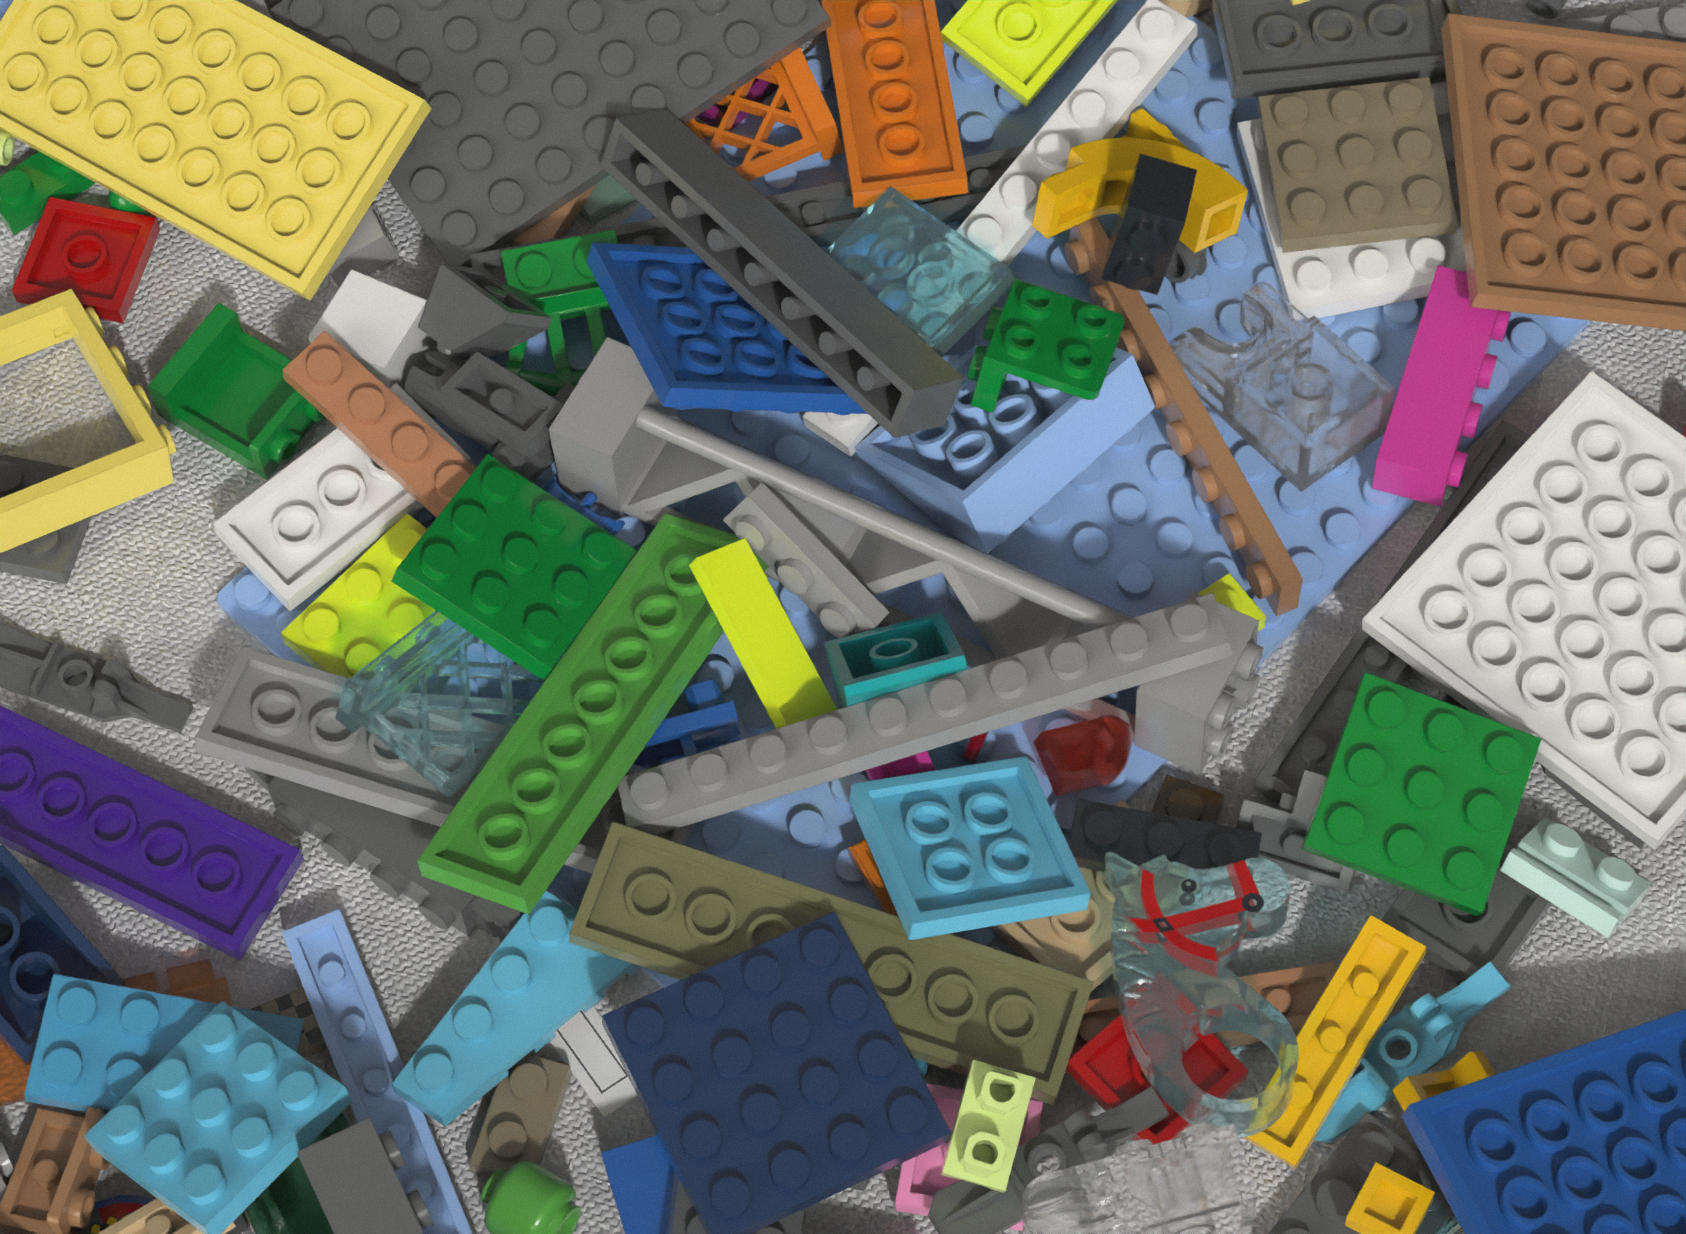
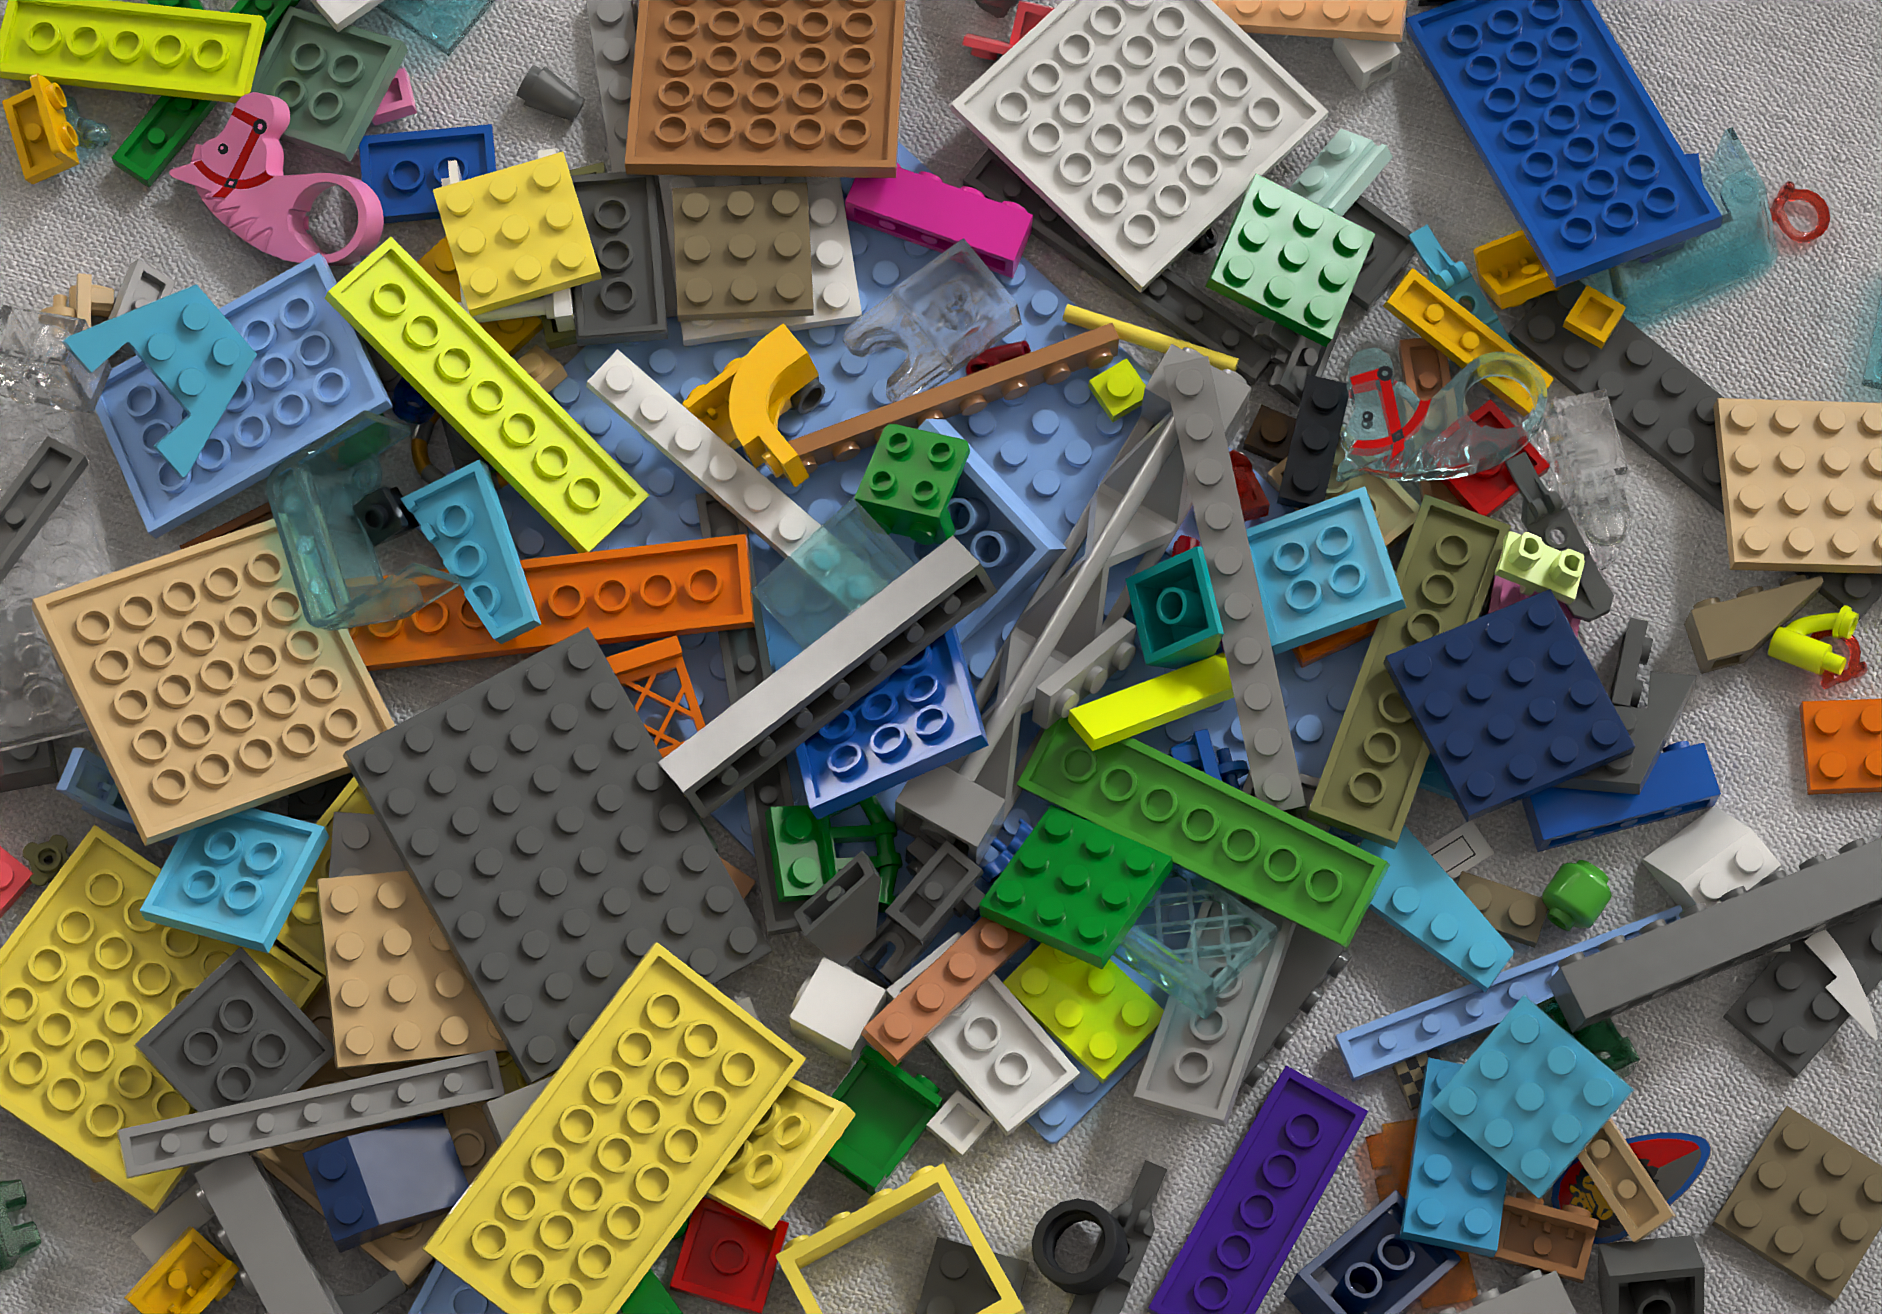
camera: 95 degrees left, 10 degrees up
(72, 648) = (1053, 1225): none -> black tyre
(184, 272) = (781, 1153): none -> light yellow plate
(231, 482) = (959, 1124): none -> white plate
(1149, 224) = (820, 394): black brick -> none
(1251, 464) = (997, 355): none -> dark red arm
(1297, 648) = (1144, 337): none -> light yellow bar

